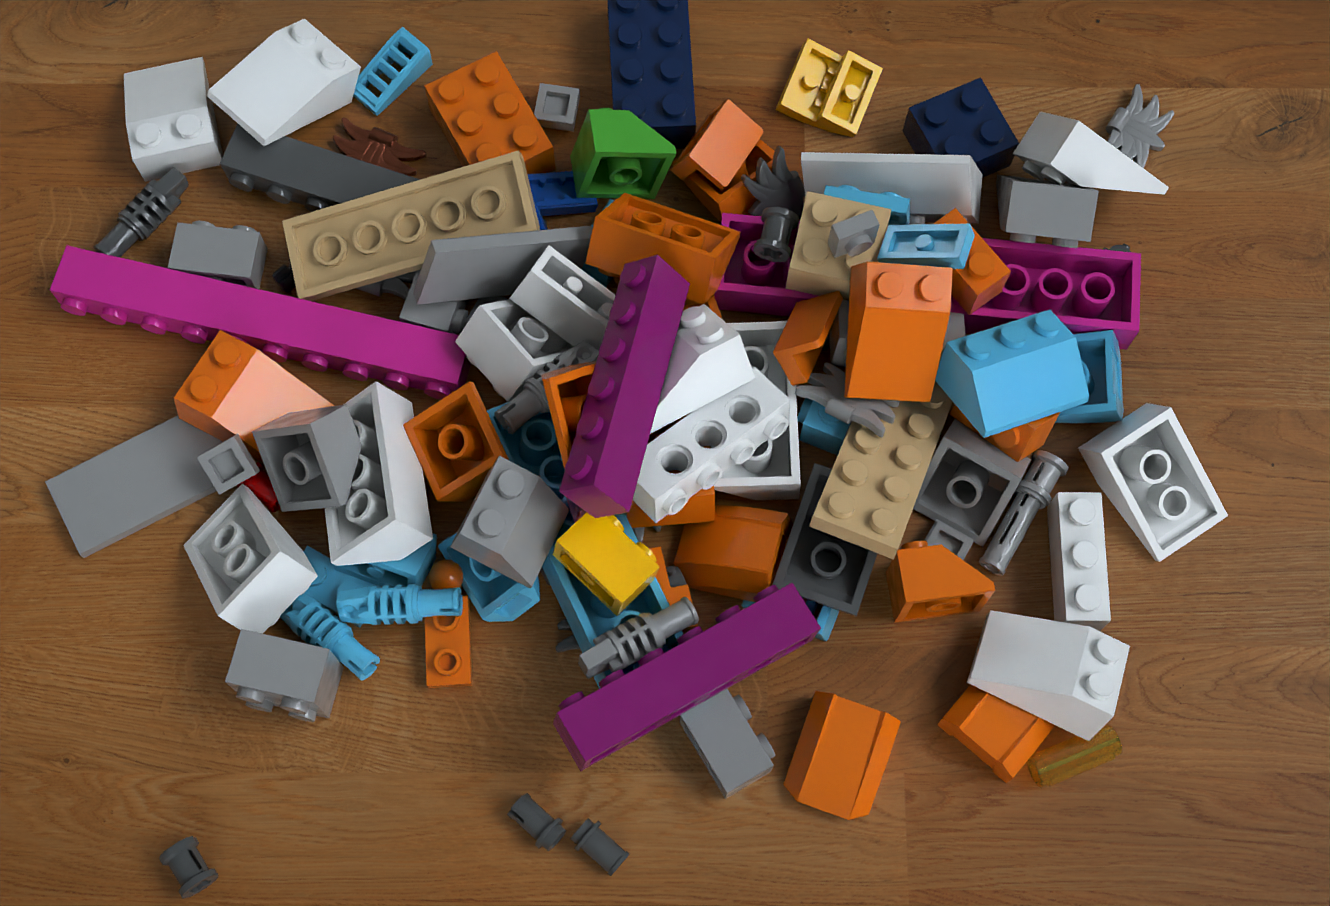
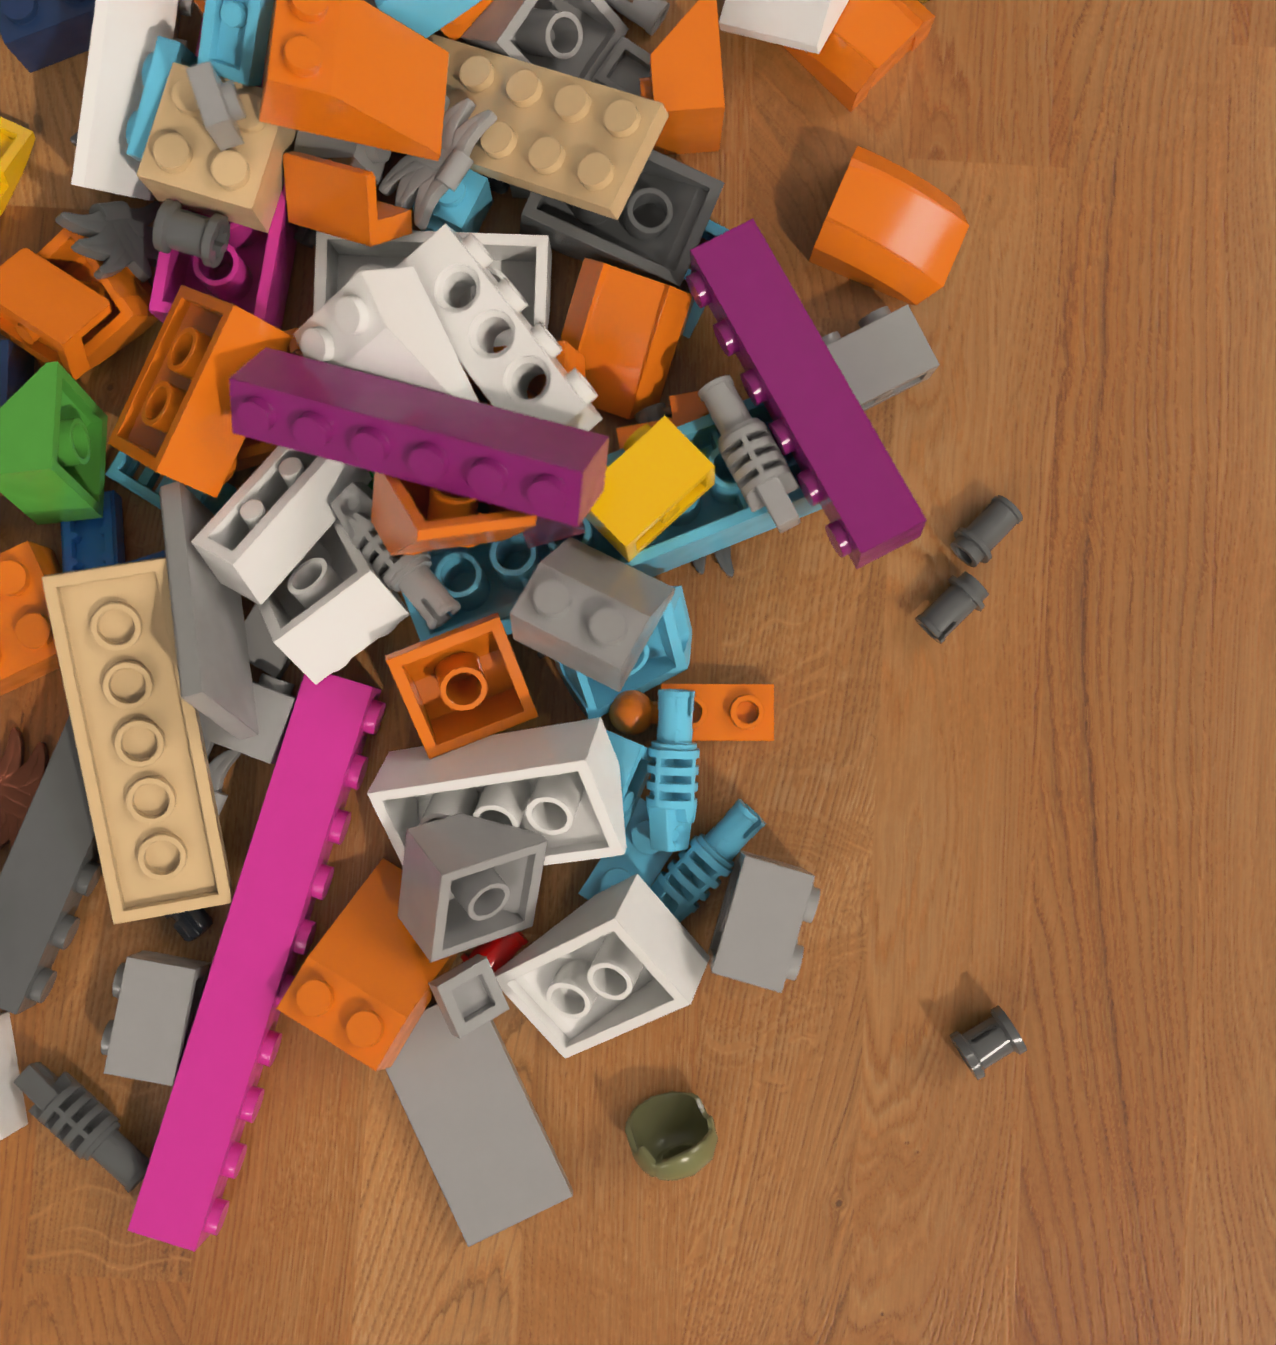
camera: 85 degrees left, 15 degrees up
(122, 622) = (671, 1135): none -> olive hair

